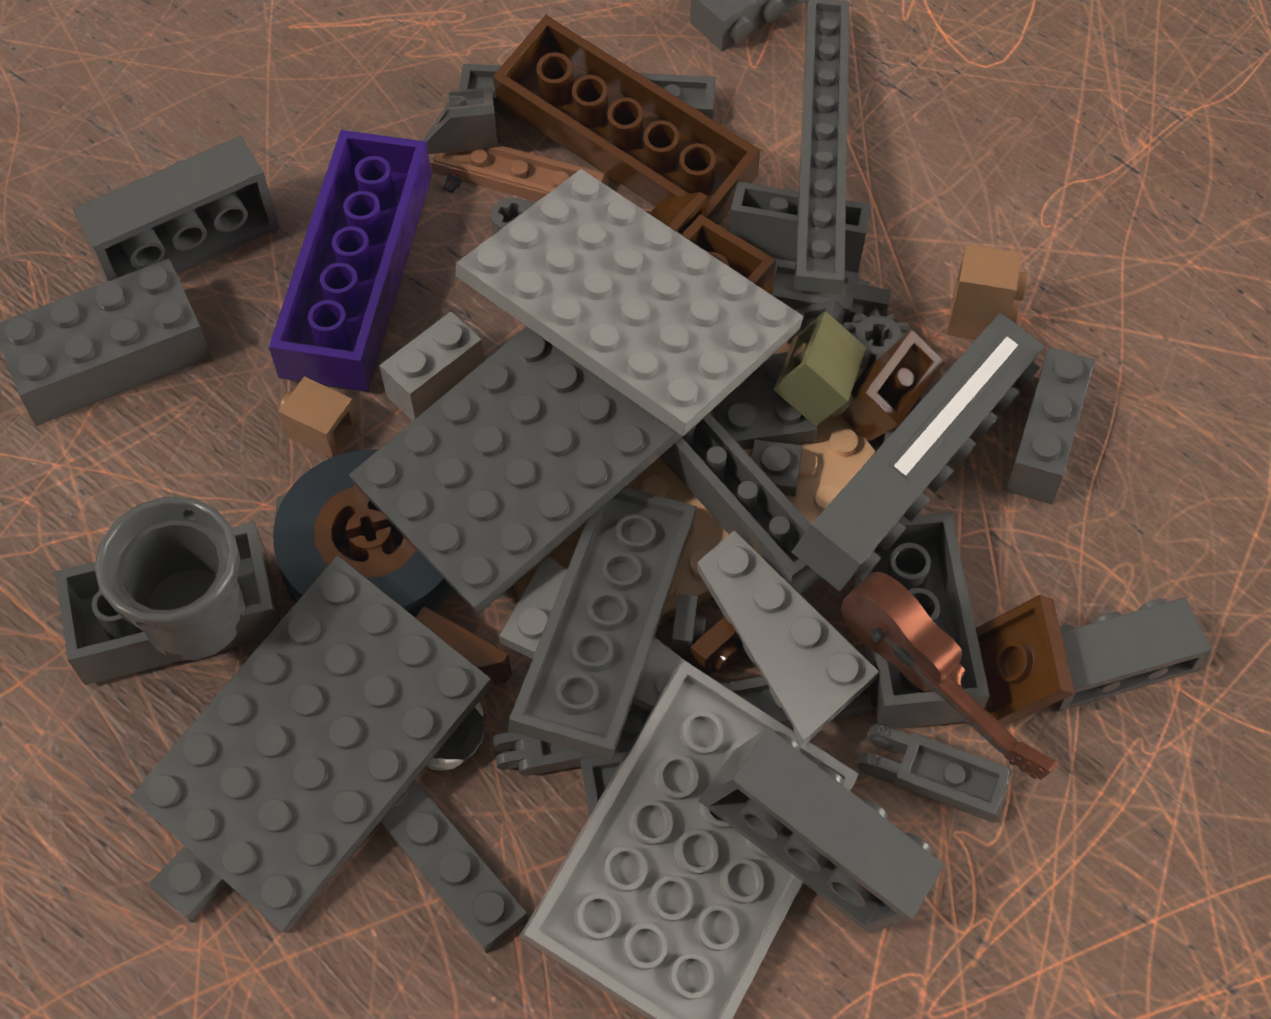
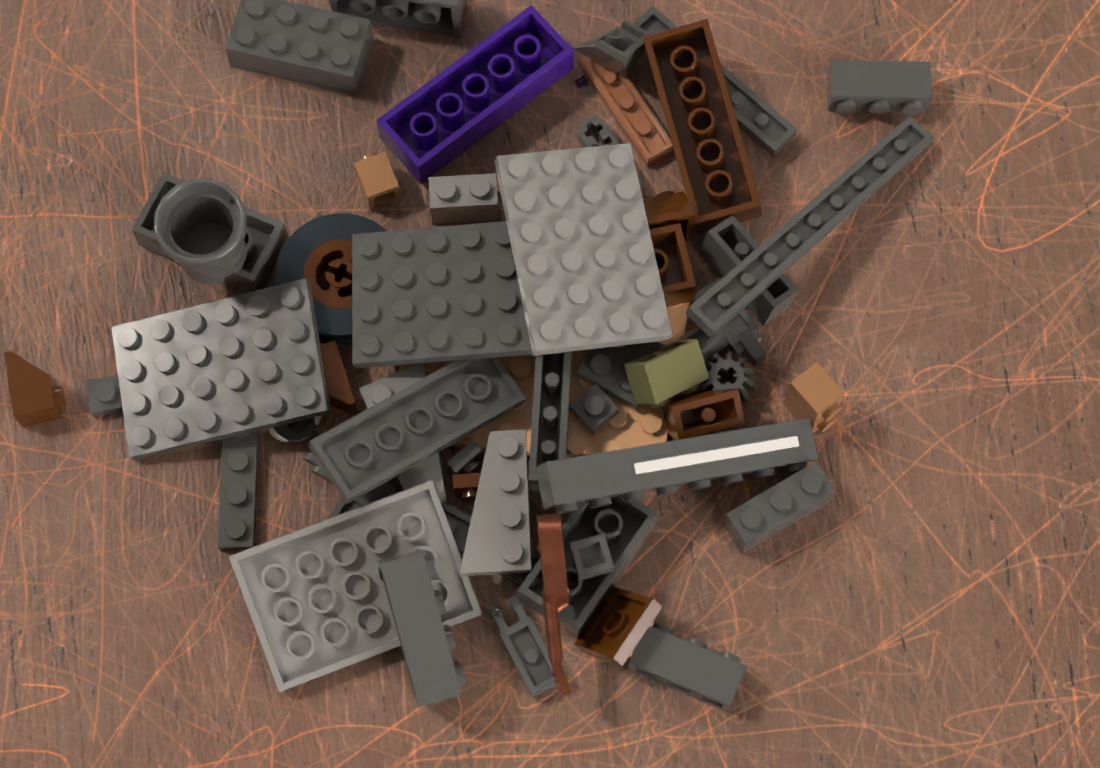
camera: 40 degrees right, 10 degrees up
(88, 948) = (32, 392): none -> reddish brown slope
(940, 598) = (591, 556): none -> dark grey plate

